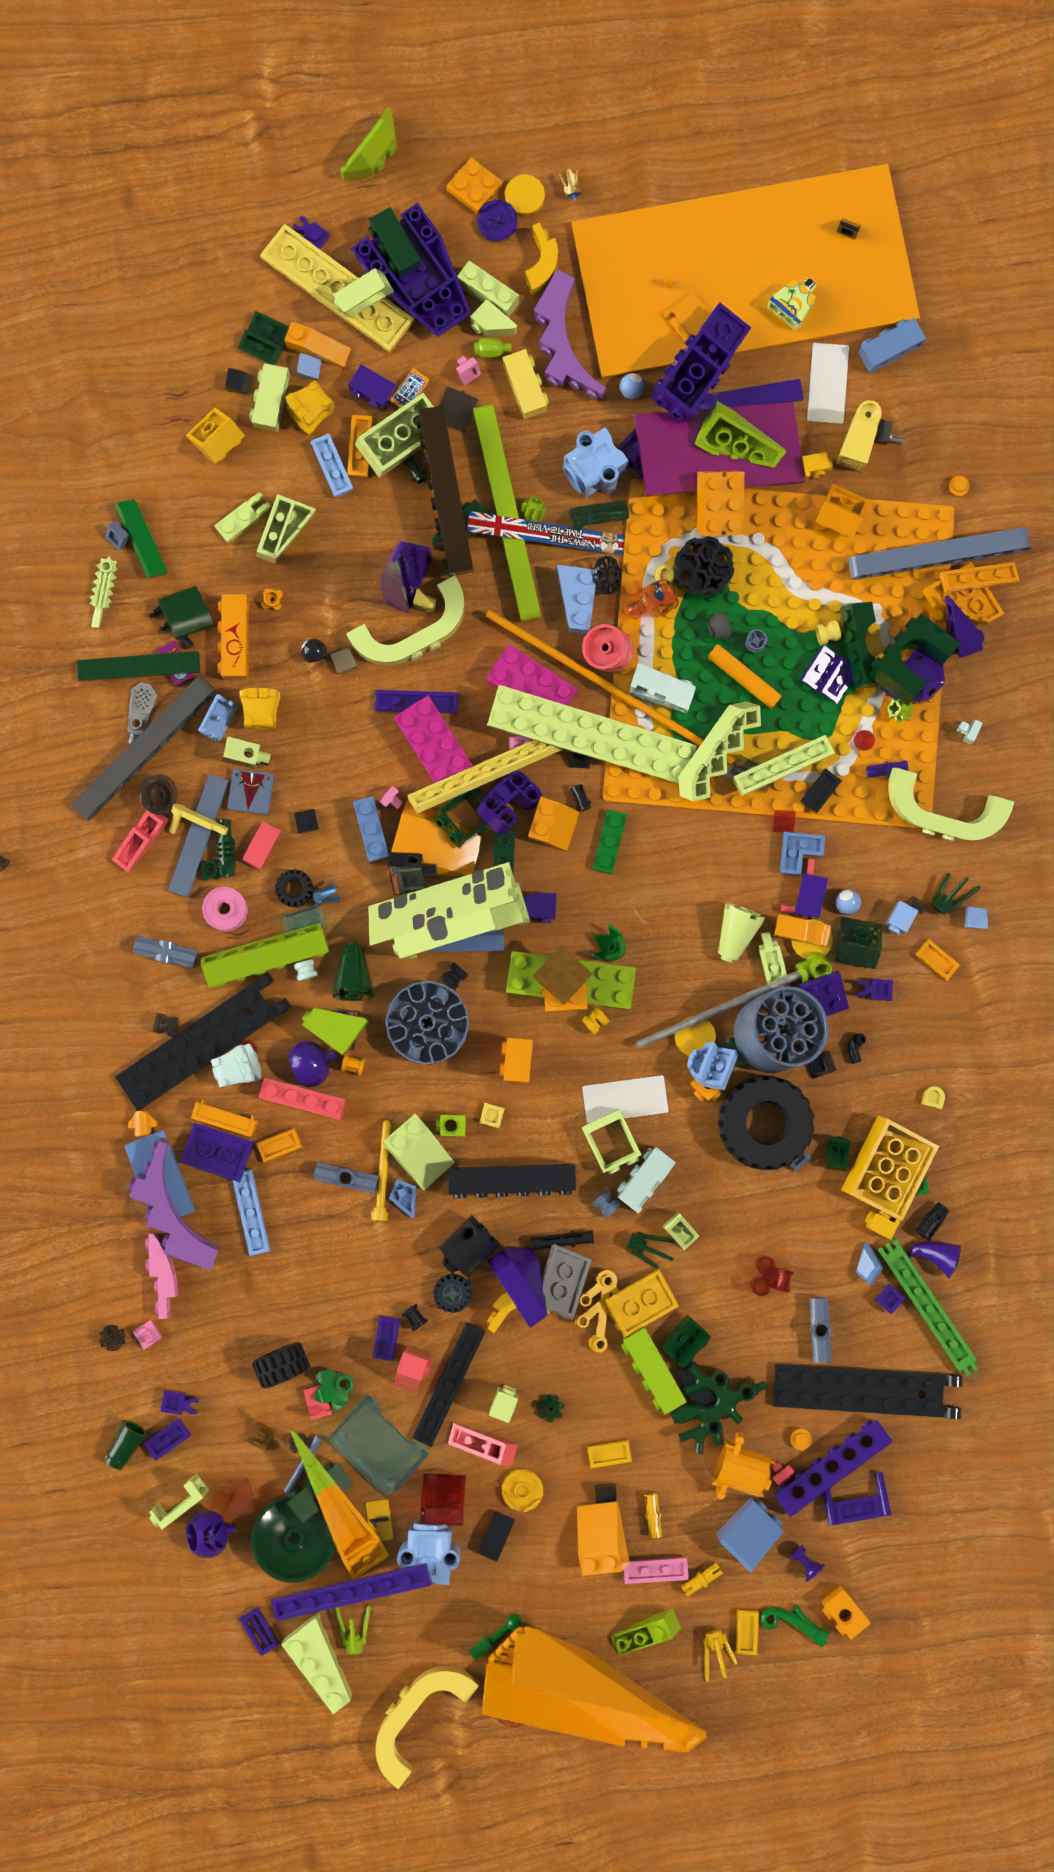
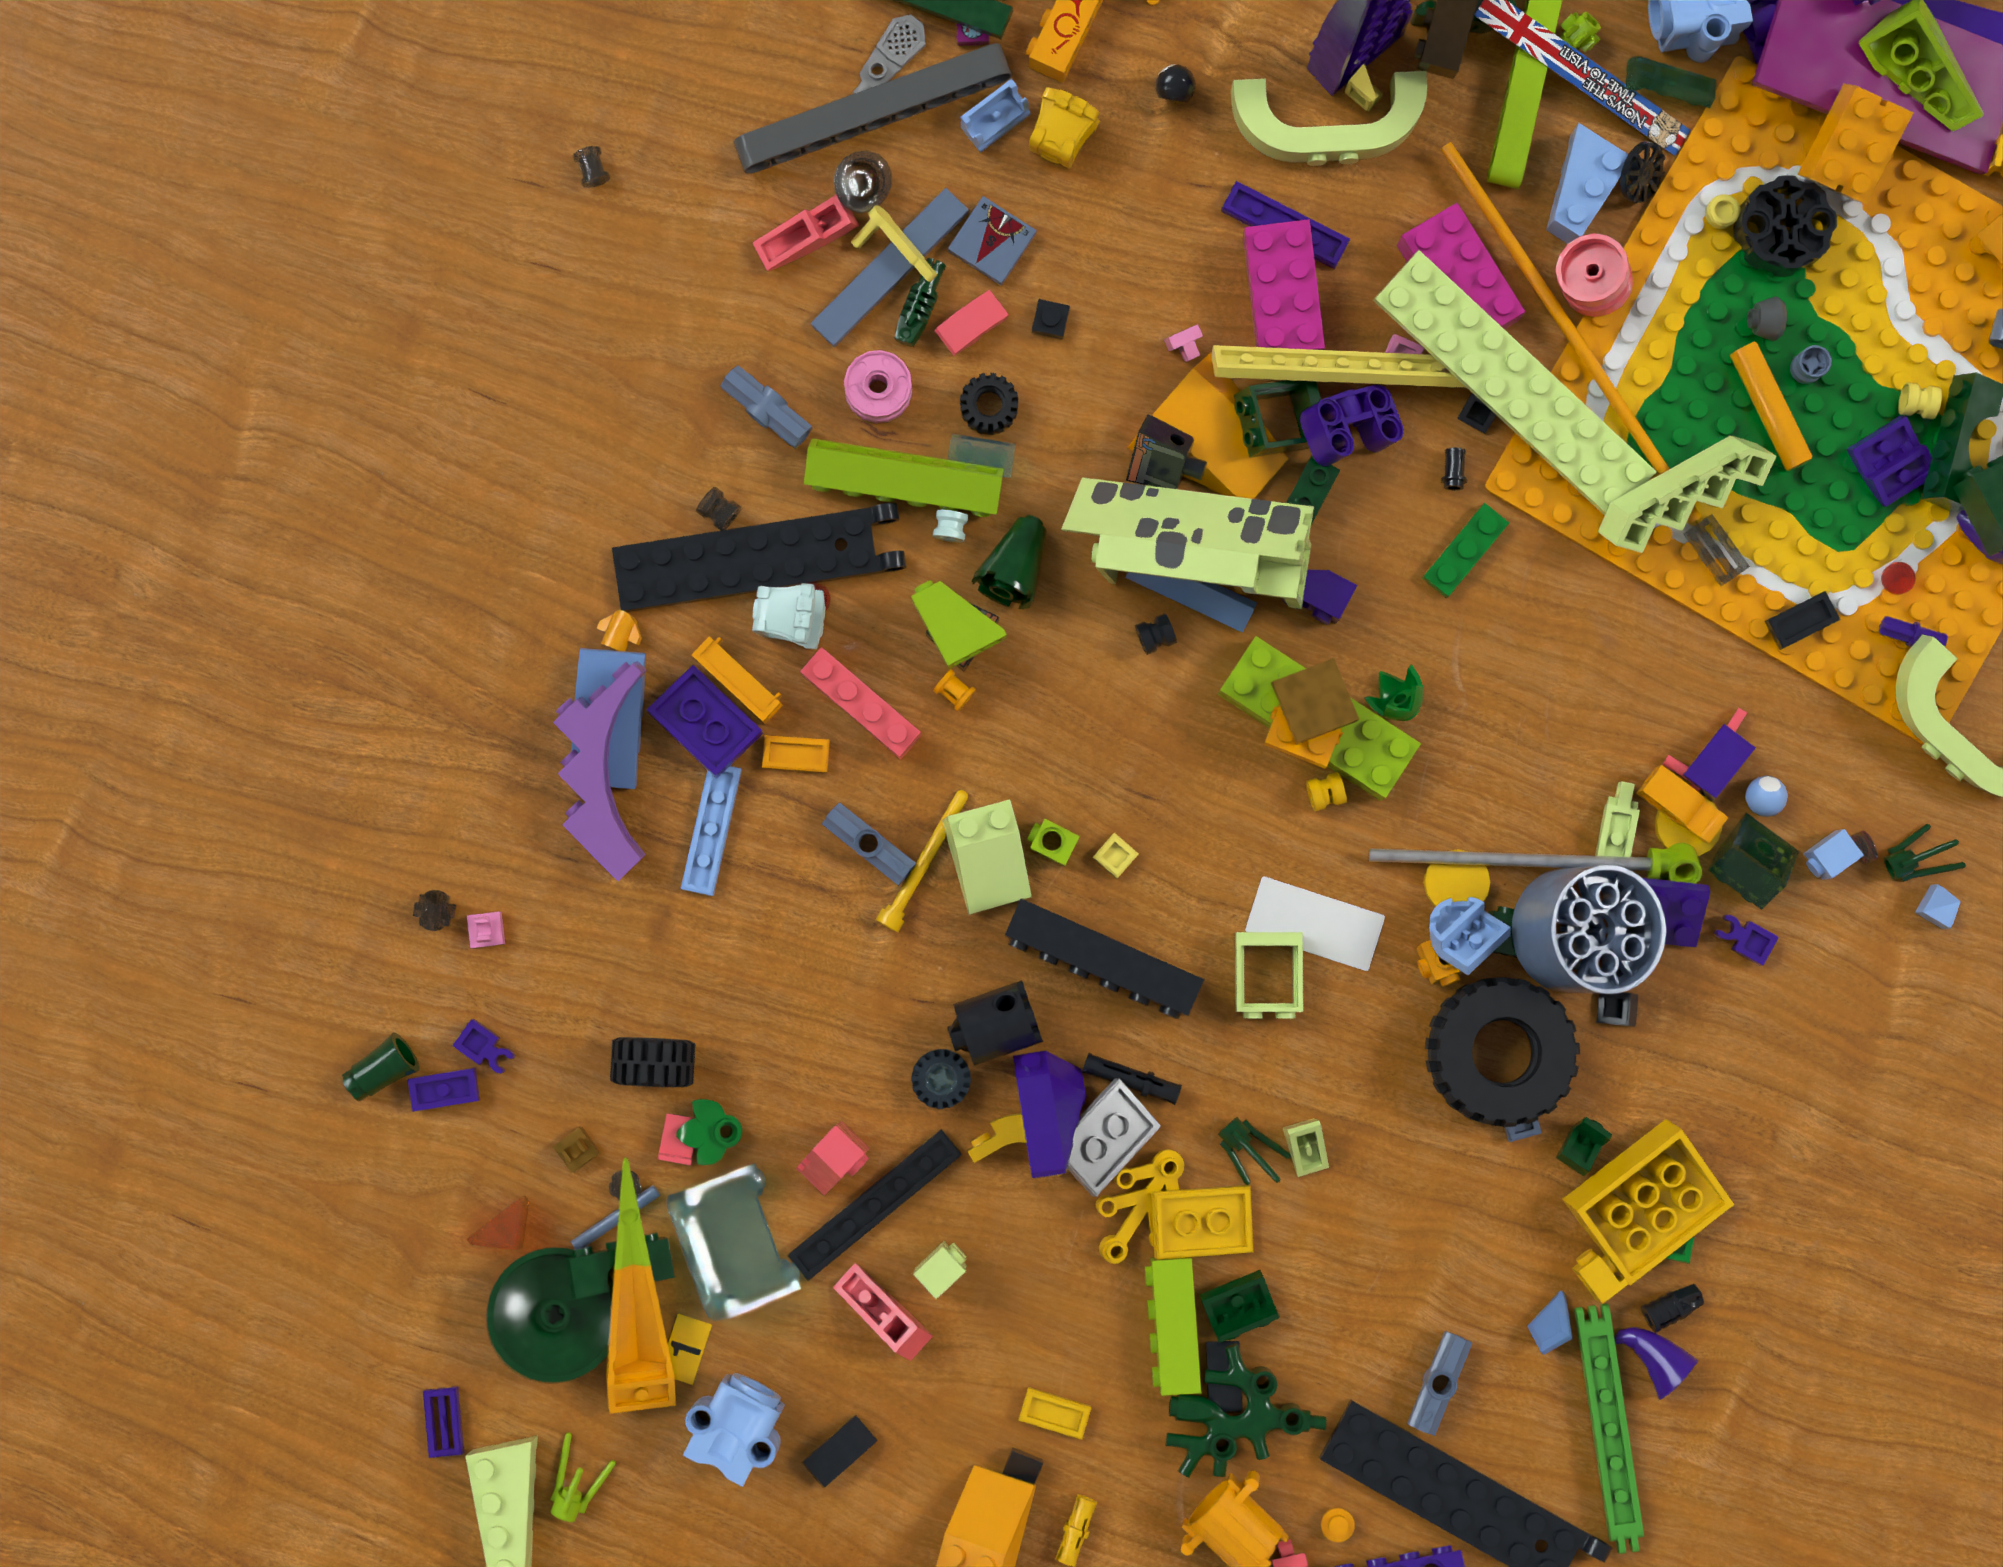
camera: 25 degrees right, 0 degrees up
(161, 1266) = (551, 842): bright pink slope -> none
(197, 1491) = (450, 1179): yellowish green window -> none
(205, 870) = (879, 314): dark green plate -> none
(207, 1534) = (436, 1249): dark purple piece -> none
(235, 752) = (999, 171): yellowish green torso -> none
(310, 1063) = (895, 658): dark purple piece -> none
(322, 895) = (1021, 430): flat silver piece -> none
(343, 661) = (1210, 119): dark tan tile -> none
(351, 1591) = (600, 1430): dark purple tile -> none
(371, 830) = (1137, 373): medium blue brick -> none
(386, 1338) = (817, 1097): dark purple tile -> none
(404, 1196) = (937, 910): medium blue piece -> none
(414, 1317) = (871, 1087): black bush -> none
(419, 1003) = (1088, 648): sand blue brick -> none
(443, 1499) = (790, 1362): clear red brick -> none
(517, 1060) = (1192, 793): light orange brick -> none
(522, 1490) = (907, 1404): yellow tile -> none
(547, 1403) = (994, 1304): dark green plant -> none
(553, 824) = (1398, 487): light orange slope -> none
(606, 1203) = (1219, 1056): sand blue wheel -> none
(645, 1178) = (1291, 1048): light aqua wedge -> none
(654, 599) = (1695, 238): clear orange piece -> none
(661, 688) = (1644, 367): light aqua wedge -> none
(737, 931) = (1589, 761): yellowish green cone -> none
(773, 1277) = (1406, 1276): clear red piece -> none
(783, 765) = (1767, 558): yellowish green plate -> none
(783, 821) = (1728, 638): clear red tile -> none
(795, 846) = (1729, 682): medium blue plate -> none
(853, 1047) = (1677, 1004): black arm -> none
(889, 1298) = (1559, 1387): dark purple plate -> none
(899, 710) = (1971, 558): lime gear -> none
(933, 1097) = (1757, 1132): light yellow tile -> none
(937, 959) = (1855, 939): light orange tile -> none

